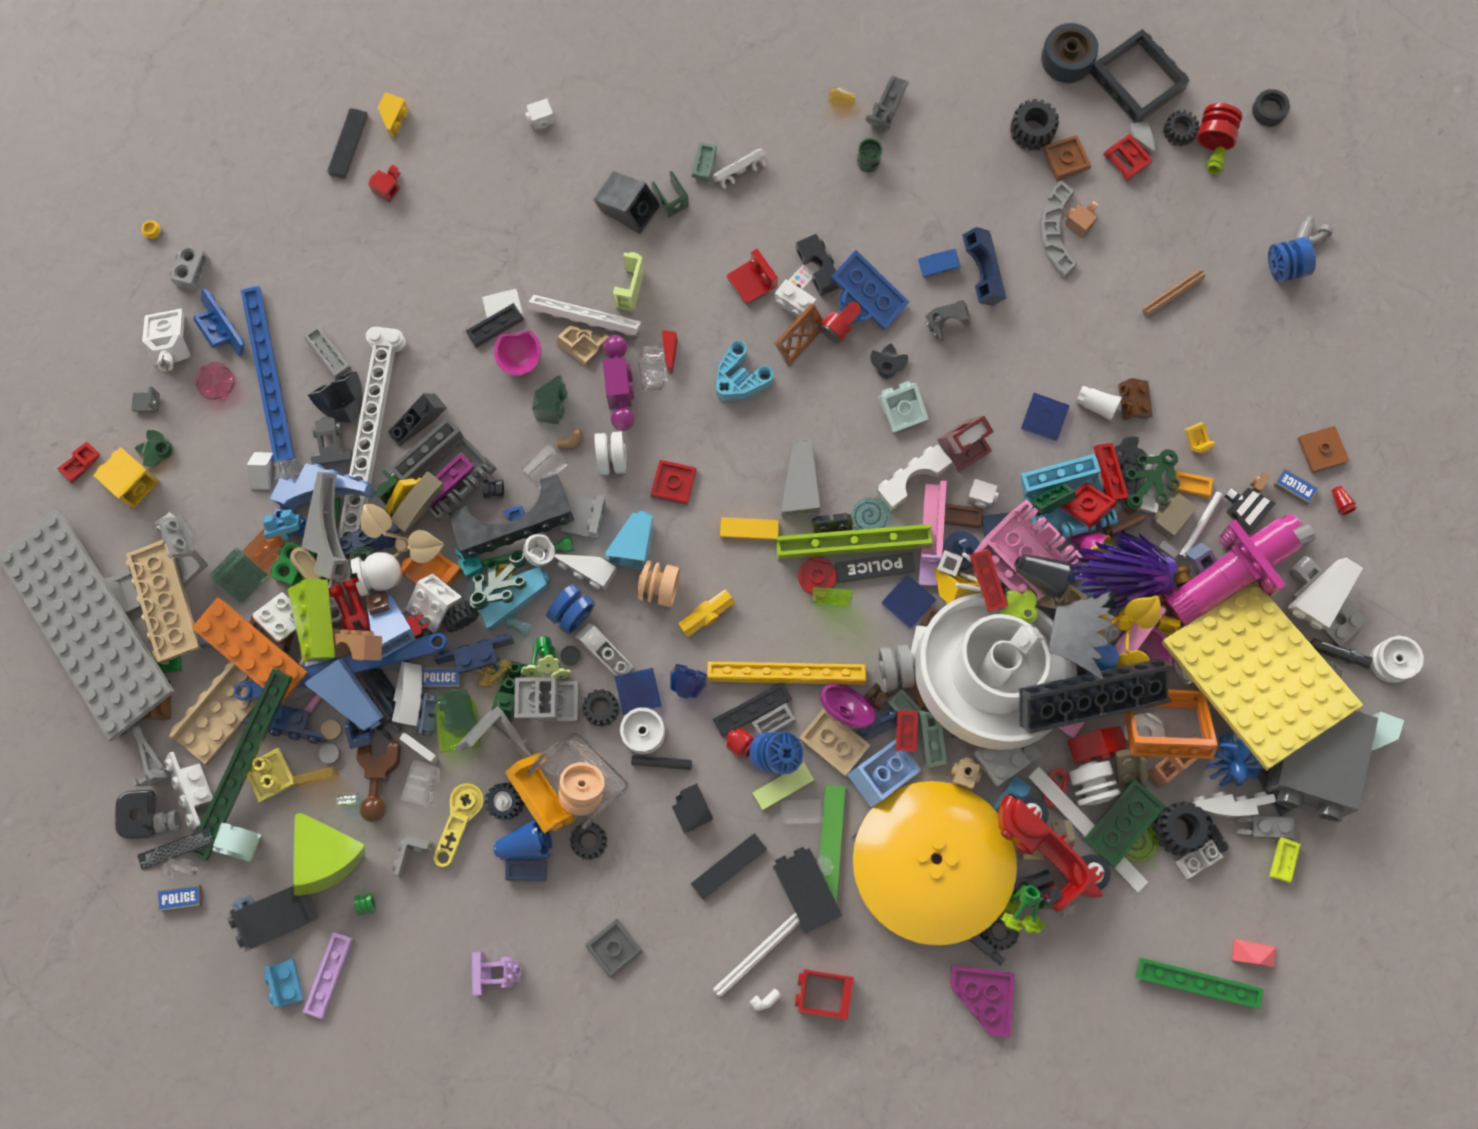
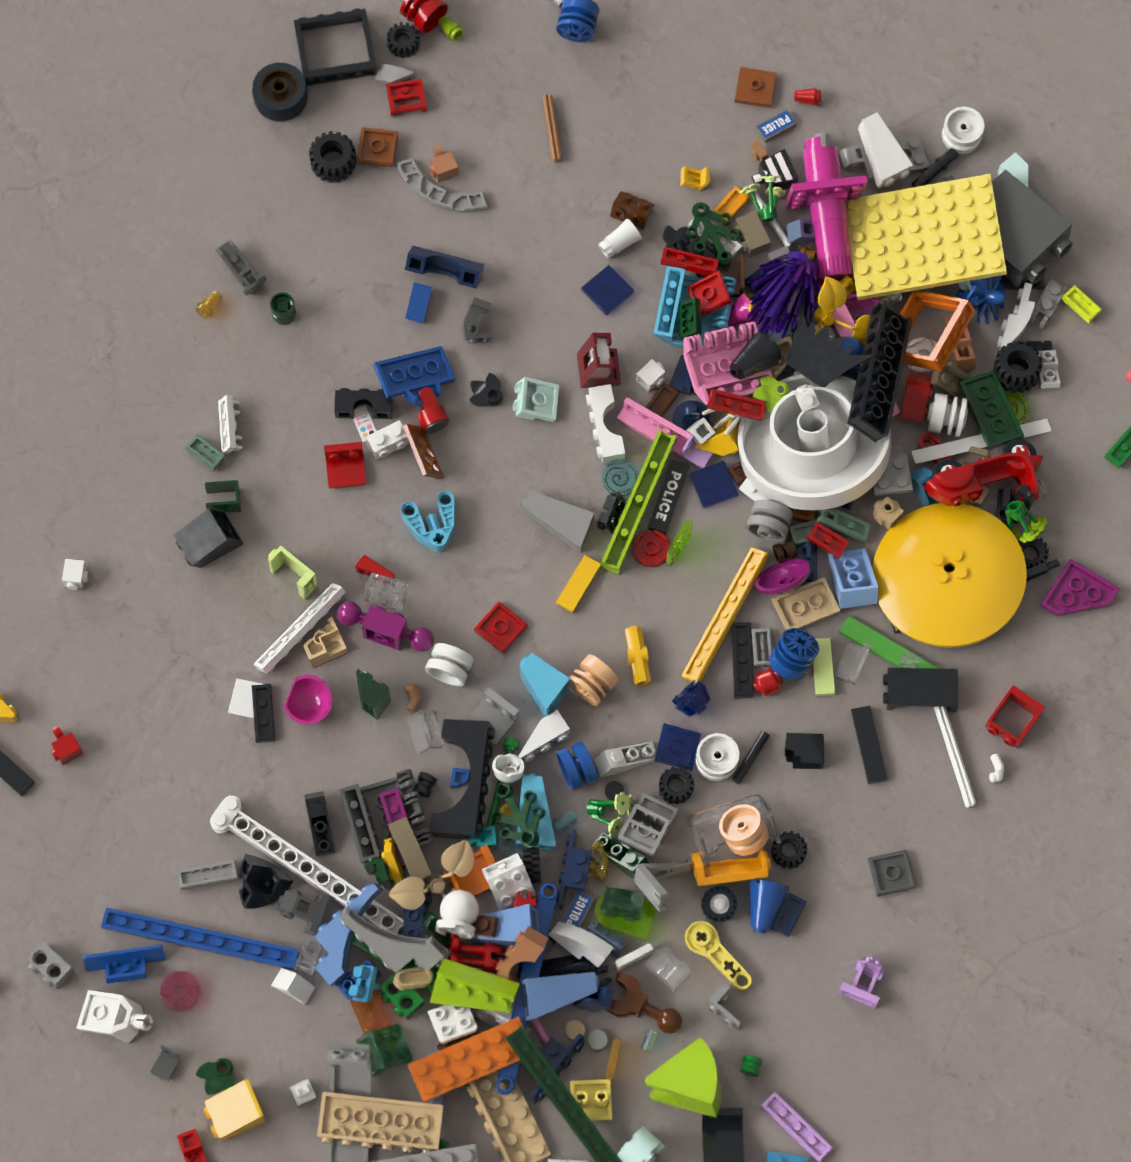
camera: 65 degrees left, 5 degrees down
(1203, 519) = (768, 211): none -> plant

